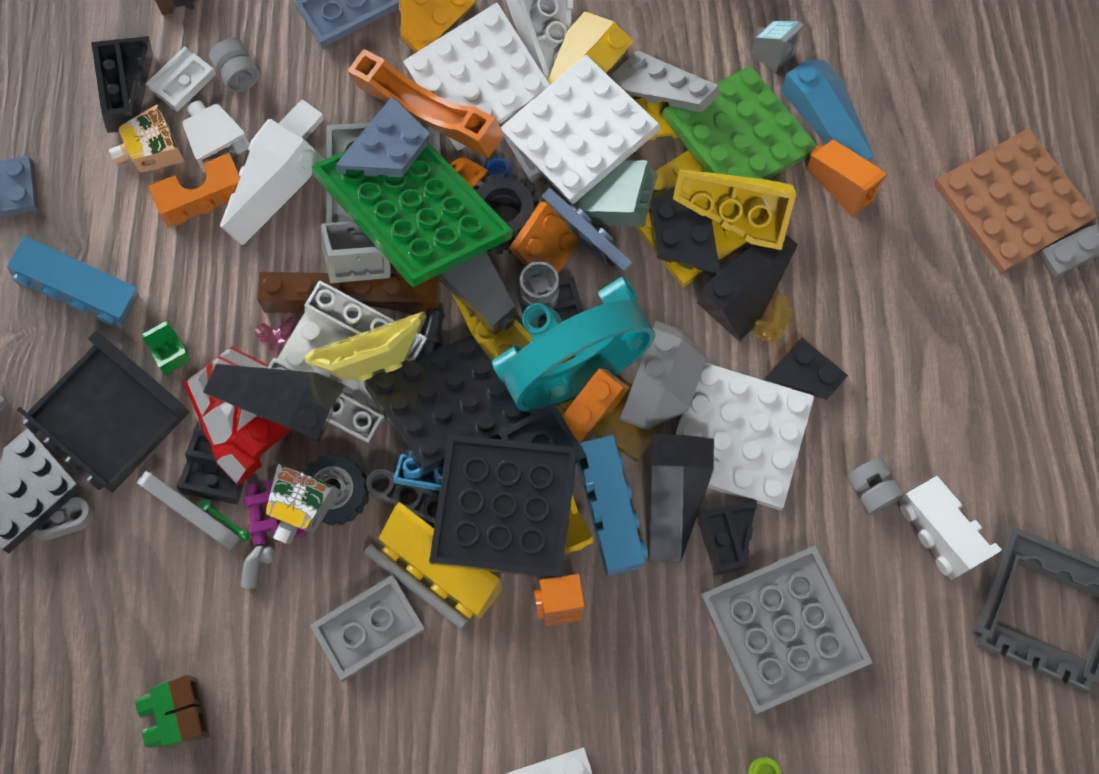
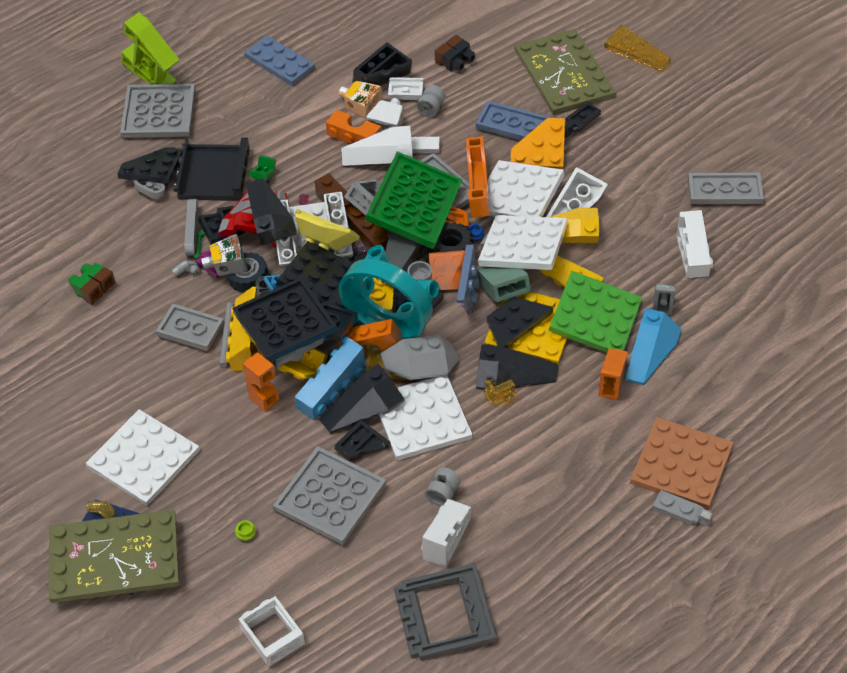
camera: 55 degrees right, 20 degrees down
(71, 282) = (264, 115): dark azure wedge -> none
(386, 144) = (437, 173): sand blue wing -> none
(660, 81) = (585, 260): light grey wing -> none
(746, 205) = (548, 335): yellow wedge -> none
(807, 371) = (484, 425): black wing -> none

